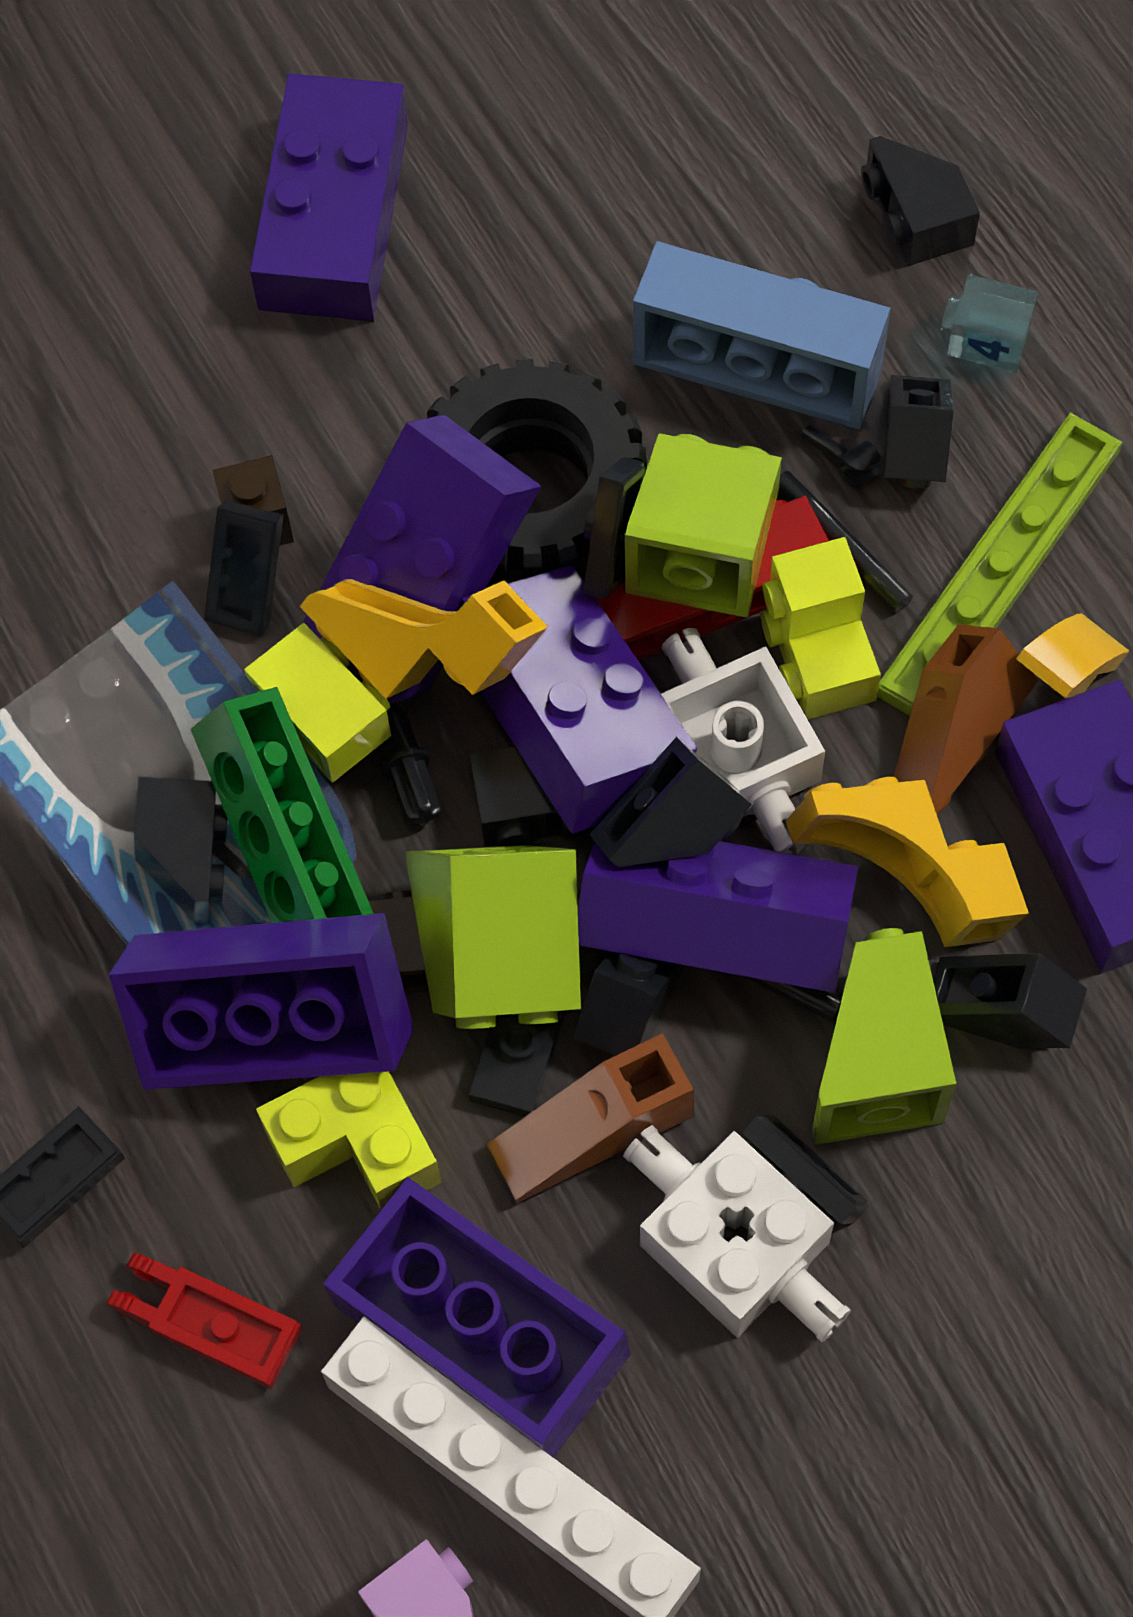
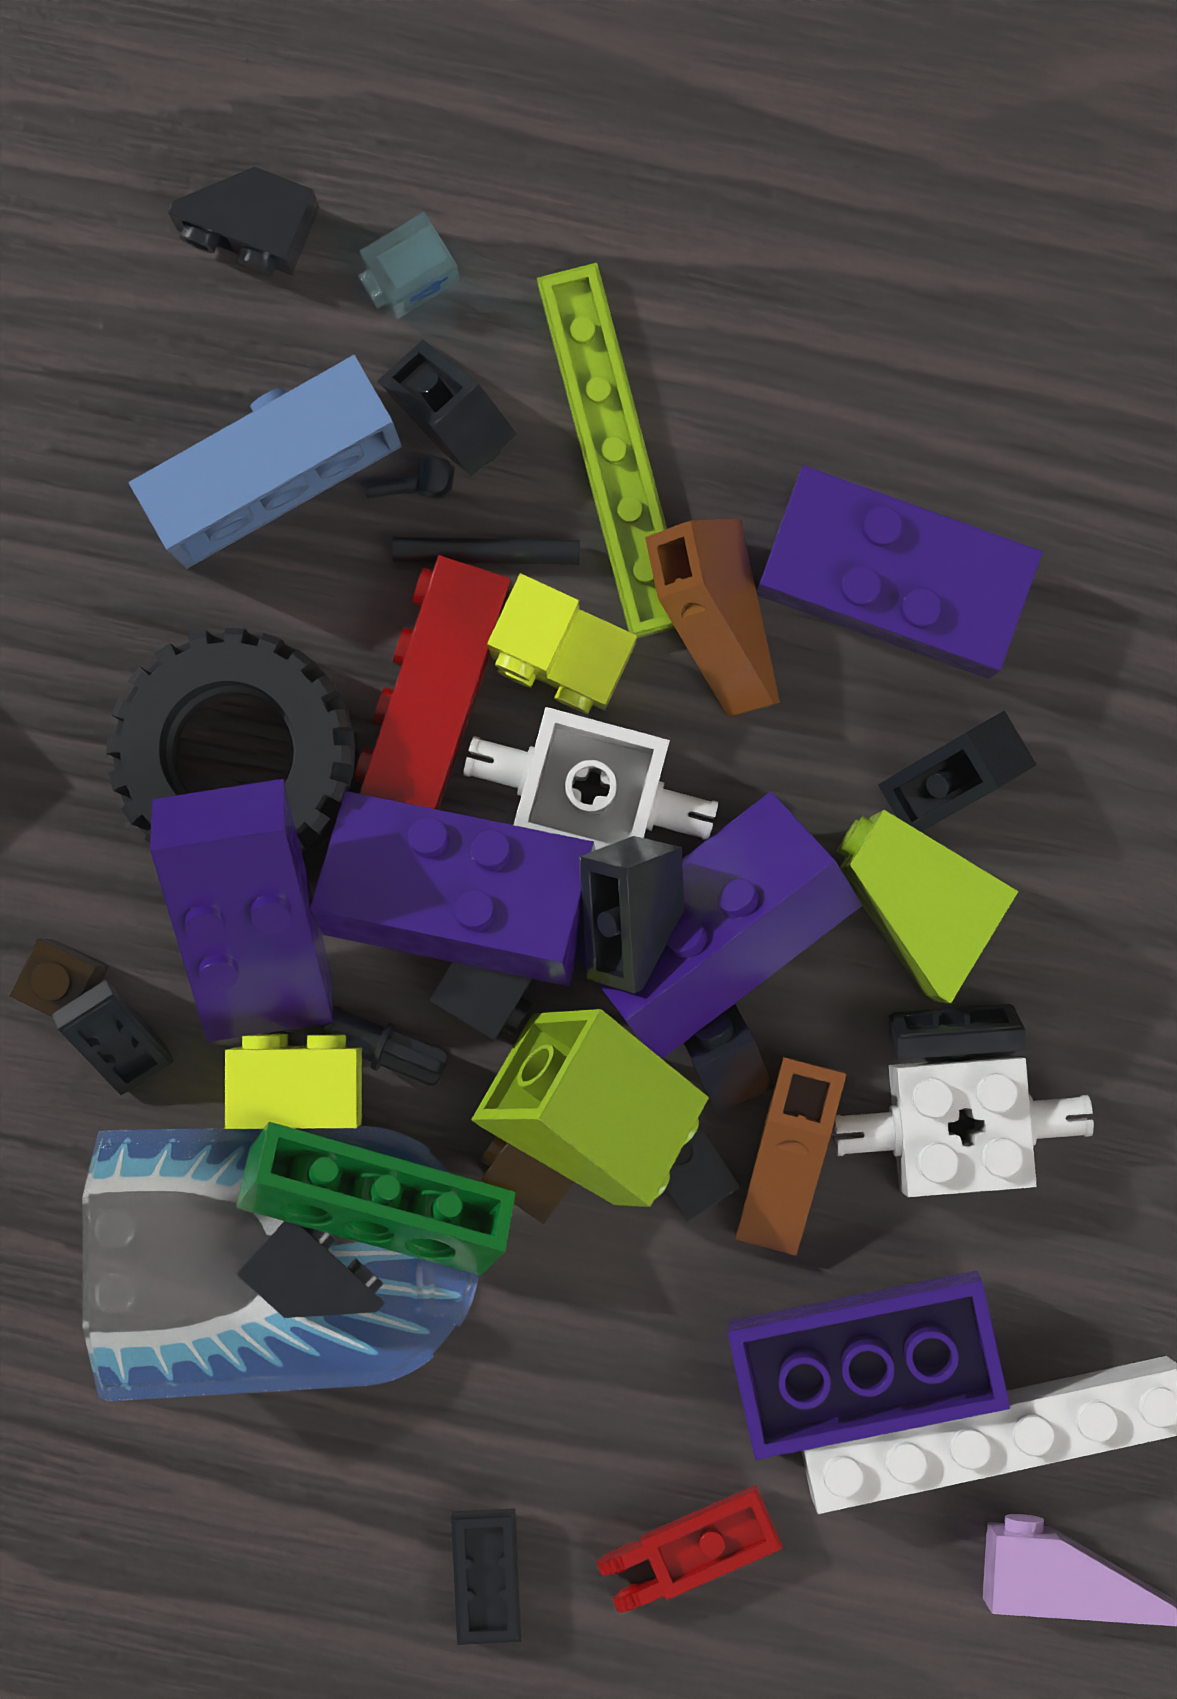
camera: 50 degrees left, 20 degrees up
(263, 1002) = (507, 1332): dark purple brick -> none
(349, 1119) = (643, 1316): neon yellow brick -> none
(401, 639) = (306, 989): yellow arch -> none
(607, 526) = (355, 744): black plate -> none
(701, 524) = (402, 660): lime slope -> none
(894, 824) = (847, 728): yellow arch -> none
(1072, 655) = (745, 475): yellow slope -> none

